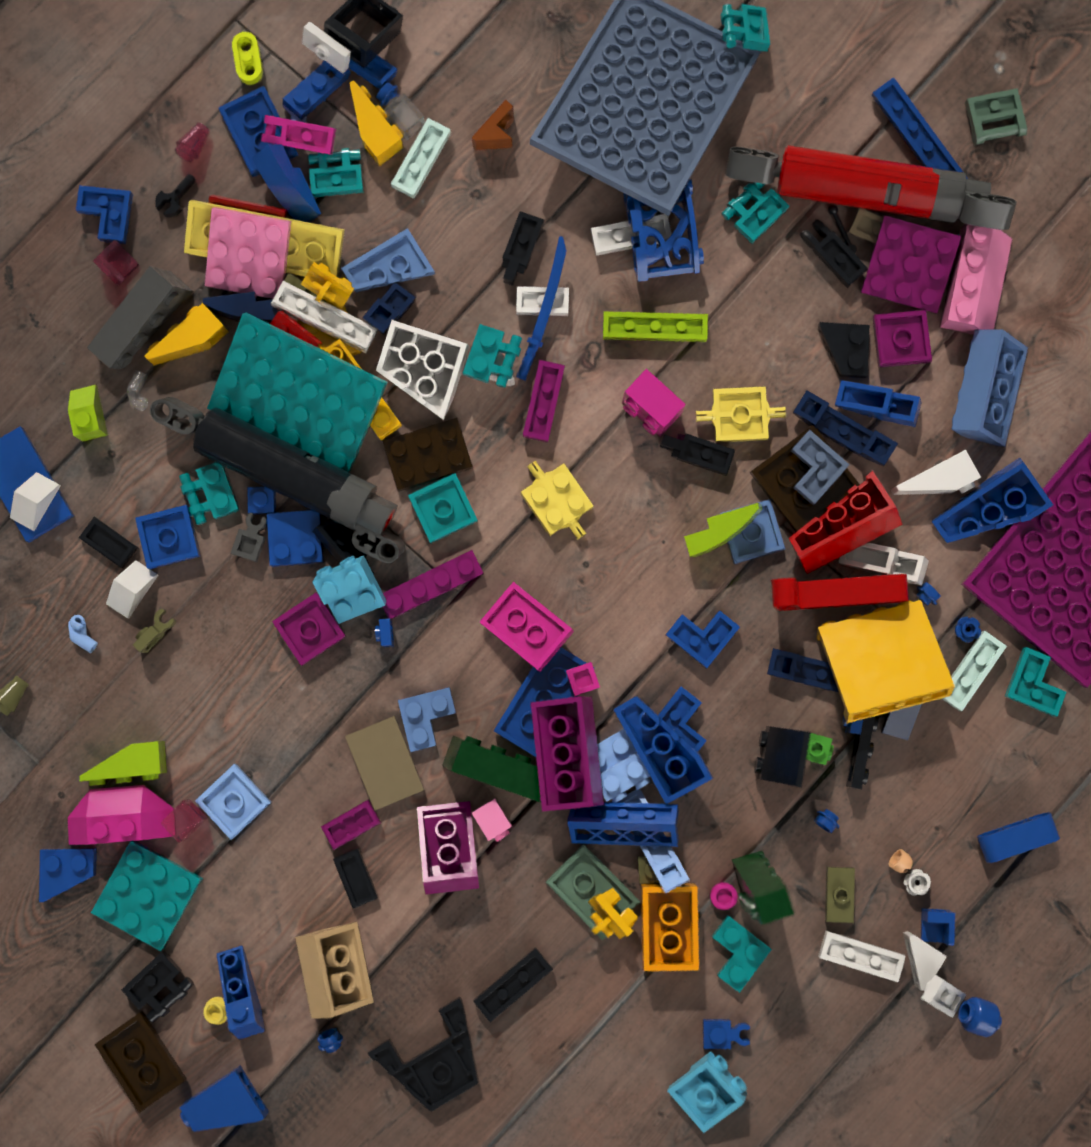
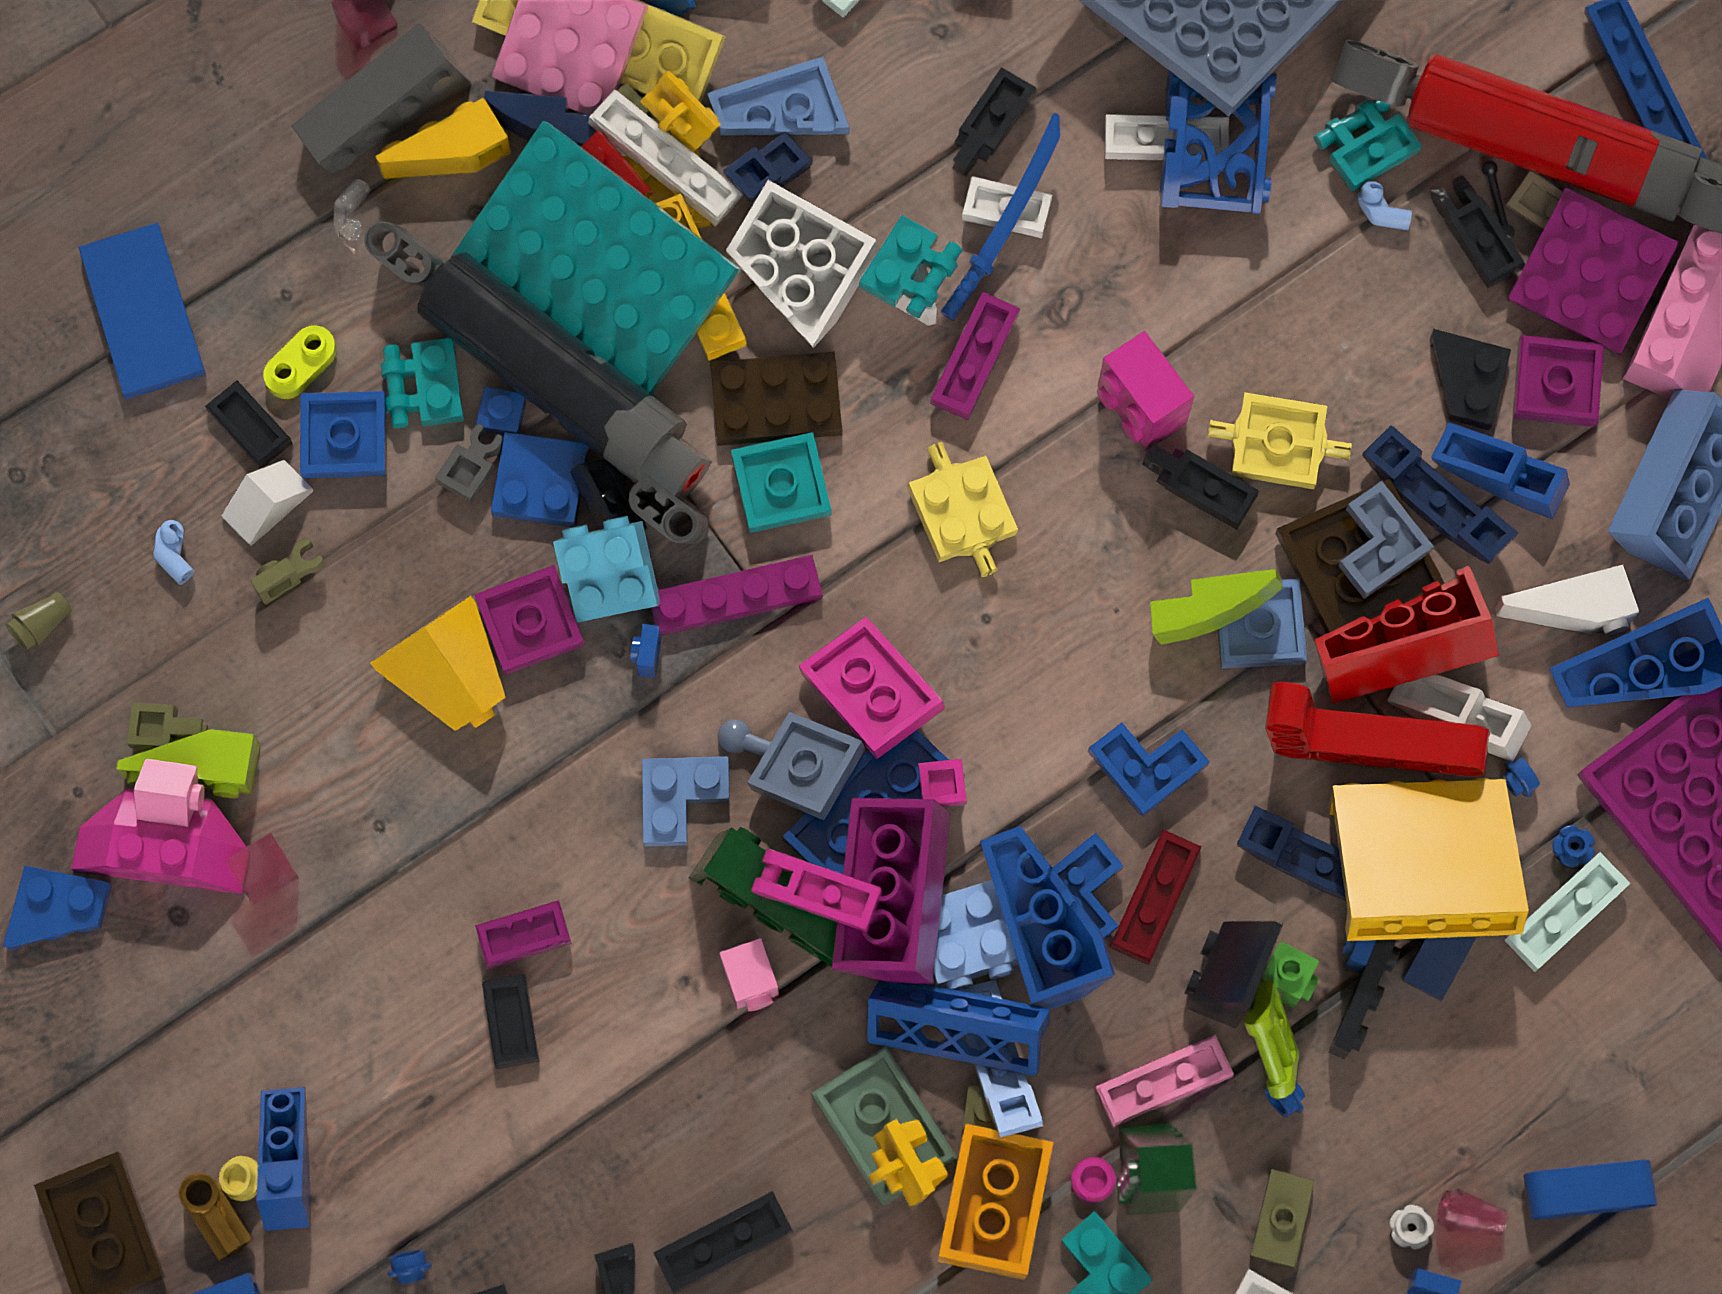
camera: 10 degrees right, 10 degrees down
(32, 500) = (150, 334): white slope -> none
(86, 414) = (264, 227): lime slope -> none
(99, 745) = (158, 725): none -> olive plate
(114, 791) = (167, 793): none -> bright pink brick
(131, 496) = (303, 362): none -> neon yellow plate
(146, 895) = (174, 974): teal plate -> none
(152, 980) = (149, 1108): black plate -> none
(209, 1040) = (215, 1219): none -> pearl gold piece
(233, 801) = (345, 859): light blue tile -> none
(266, 671) = (447, 667): none -> yellow slope
(334, 970) = (442, 1154): tan slope -> none
(384, 763) = (598, 852): dark tan tile -> none
(447, 848) = (668, 1004): magenta slope -> none
(494, 685) = (801, 765): none -> sand blue plate
(523, 768) = (818, 890): none -> dark pink plate
(655, 326) = (1173, 281): lime plate -> none
(724, 715) = (1155, 897): none -> dark red tile
(753, 827) = (1164, 1081): none -> bright pink tile
(770, 252) = (1378, 211): none -> light blue arm
(817, 796) = (1274, 1039): none -> lime plate
(901, 861) = (1392, 1188): light nougat hinge -> none
(949, 868) = (1469, 1214): none -> clear pink cone
(1027, 684) = (1653, 959): teal plate -> none

